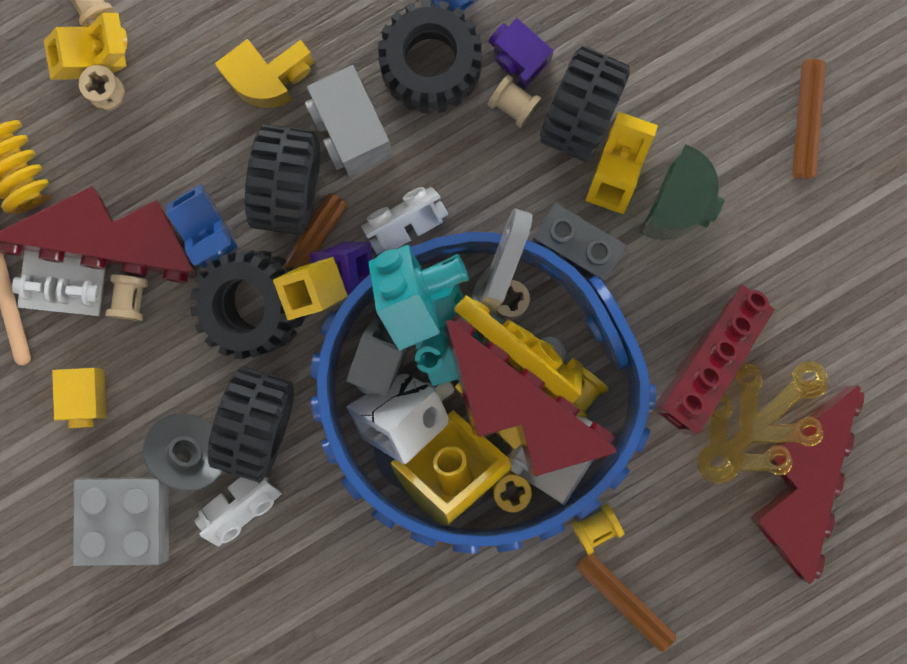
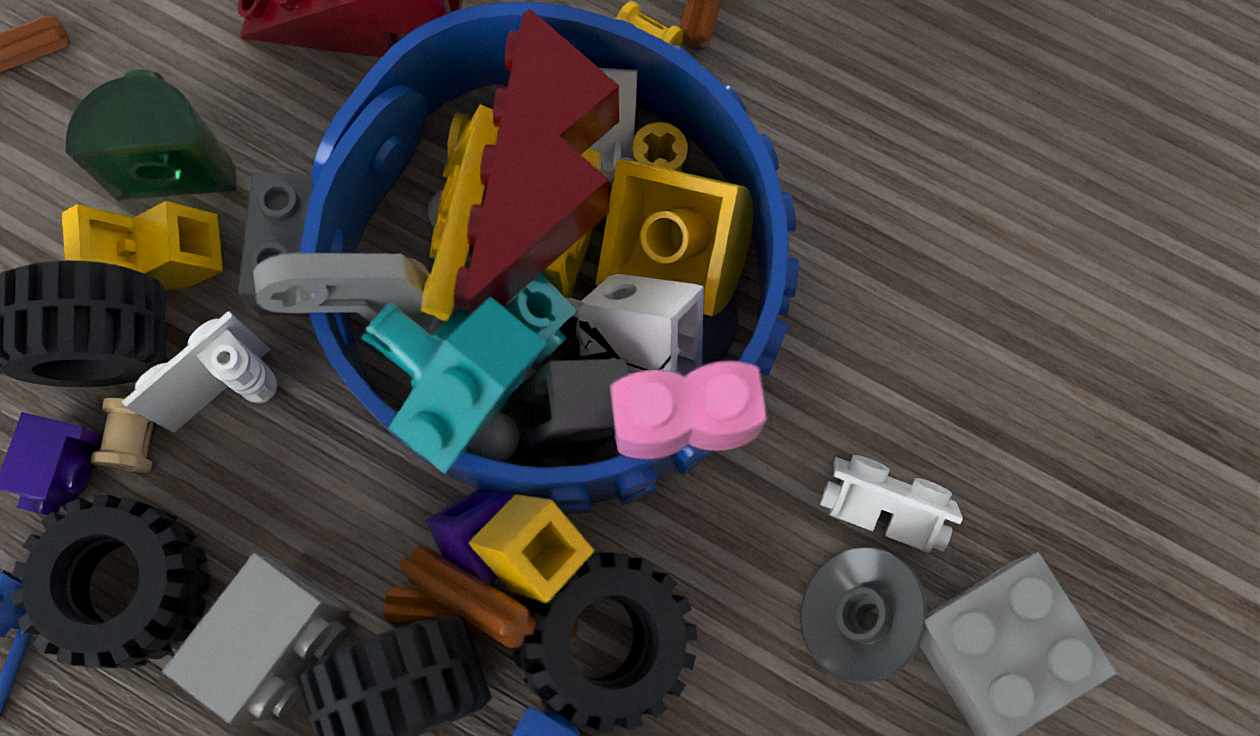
camera: 120 degrees left, 10 degrees down
(250, 424) = (770, 531): black tyre -> none
(310, 242) = (468, 596): none -> dark orange axle
(321, 418) = (708, 409): none -> bright pink brick
(415, 210) = (345, 483): white hinge -> none
(522, 177) = (217, 357): none -> white hinge

